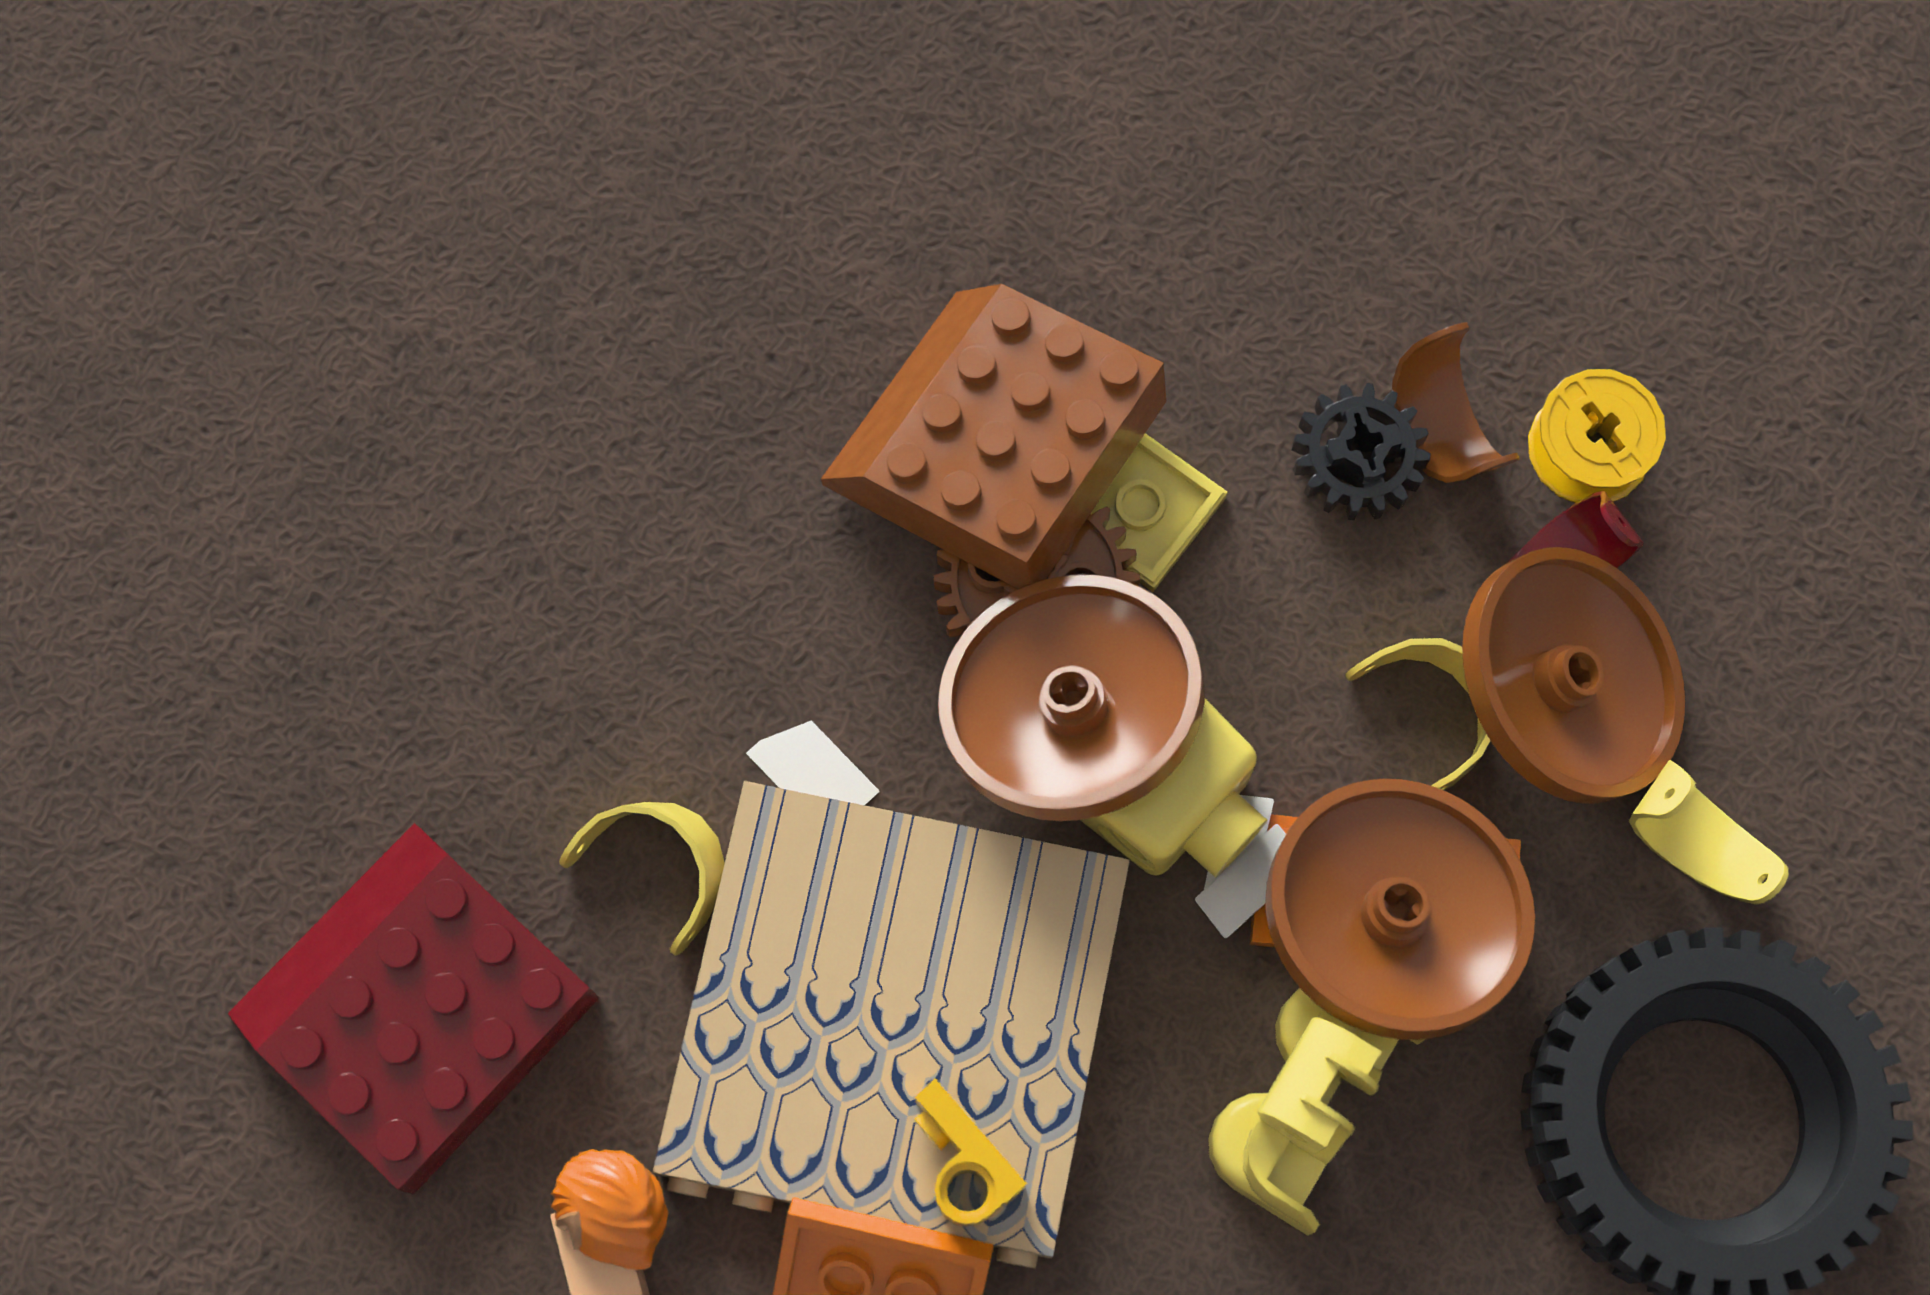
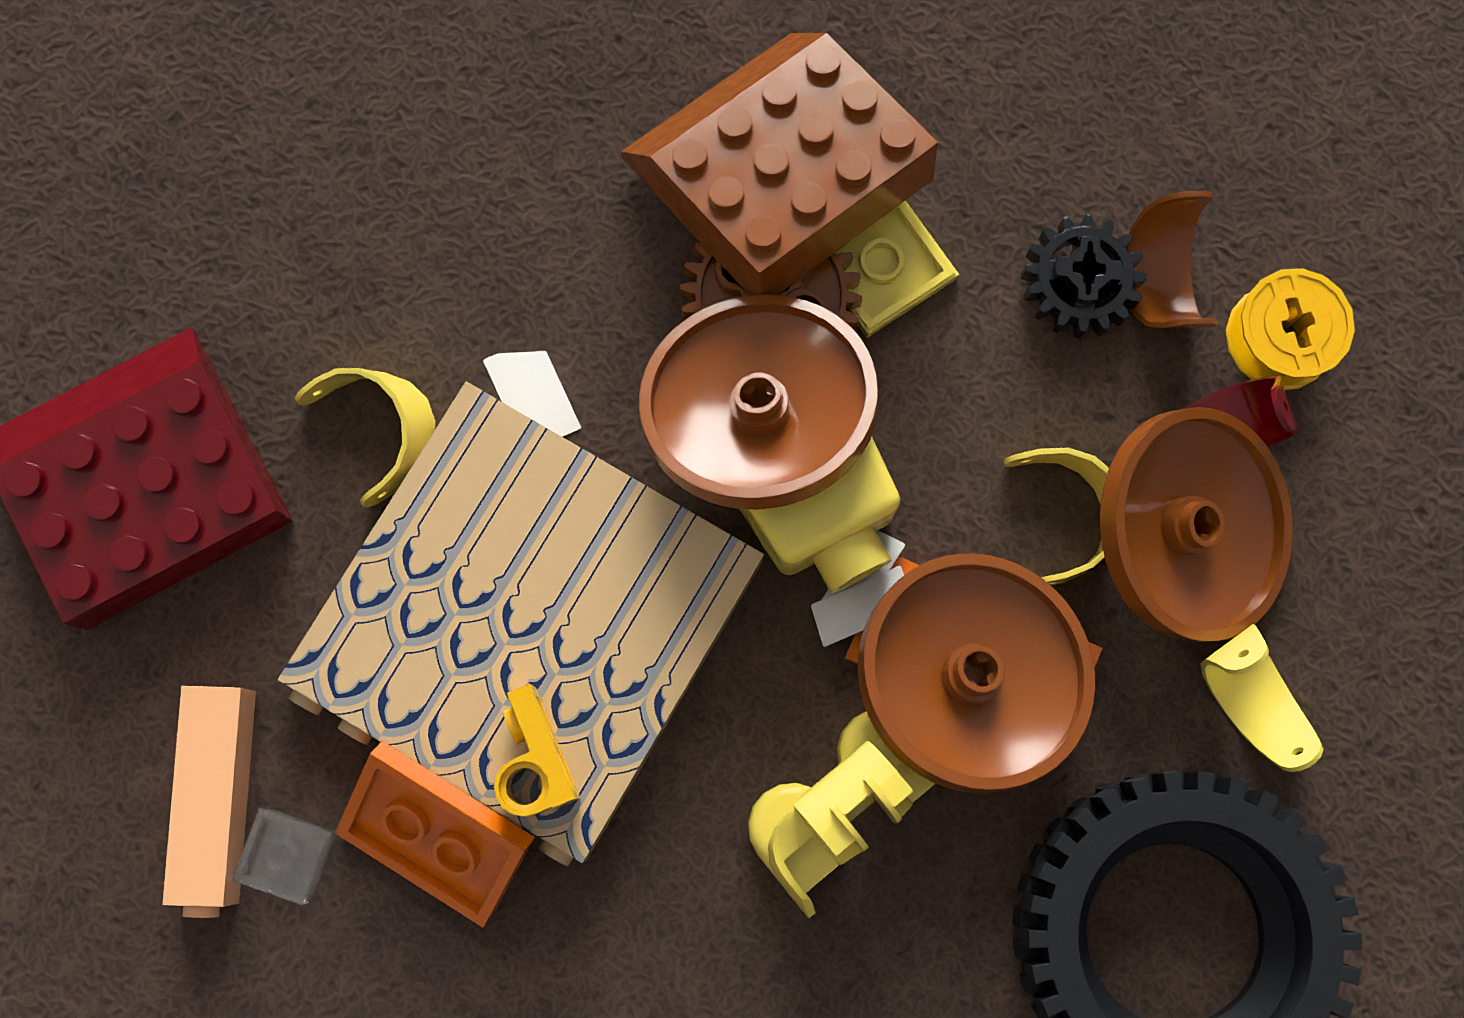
camera: 15 degrees right, 5 degrees up
(611, 1208) = (232, 698): orange hair -> none

